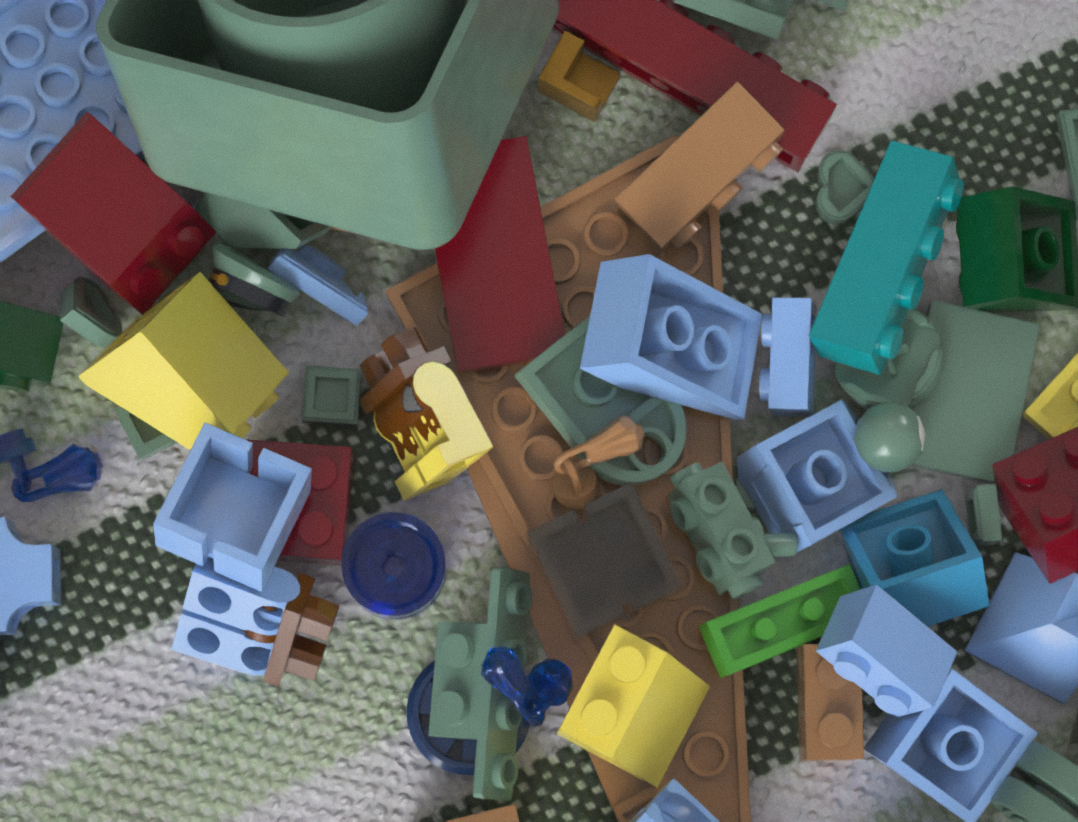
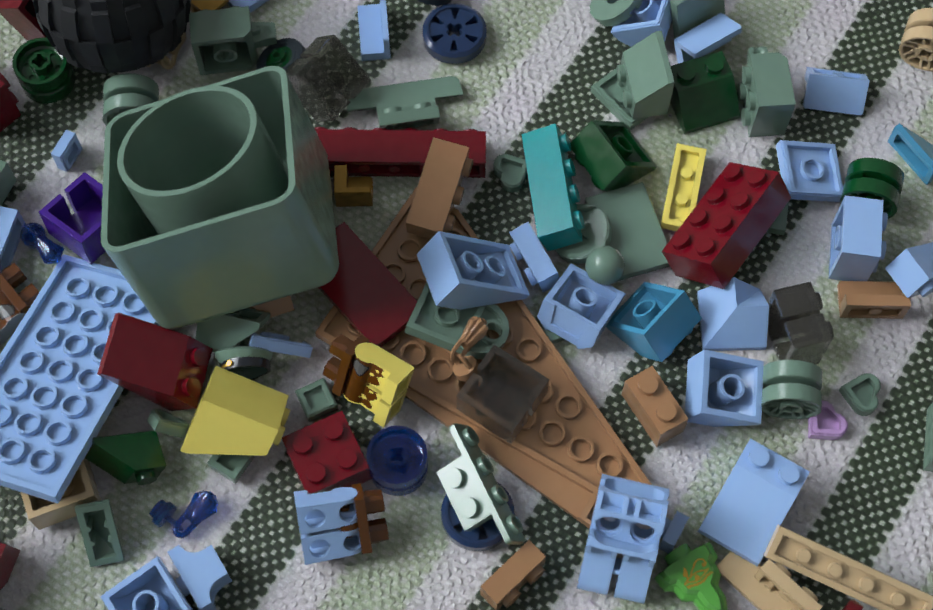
camera: 25 degrees left, 15 degrees down
(228, 512) = (295, 469): light blue piece -> none
(545, 686) = (507, 474): clear blue piece -> none
(634, 706) = (558, 453): light yellow slope -> none
(722, 531) = (551, 348): sand green brick -> none
(776, 622) = (607, 378): bright green plate -> none
(886, 651) = (667, 358): light blue brick -> none
(983, 515) = (671, 276): sand green tile -> none

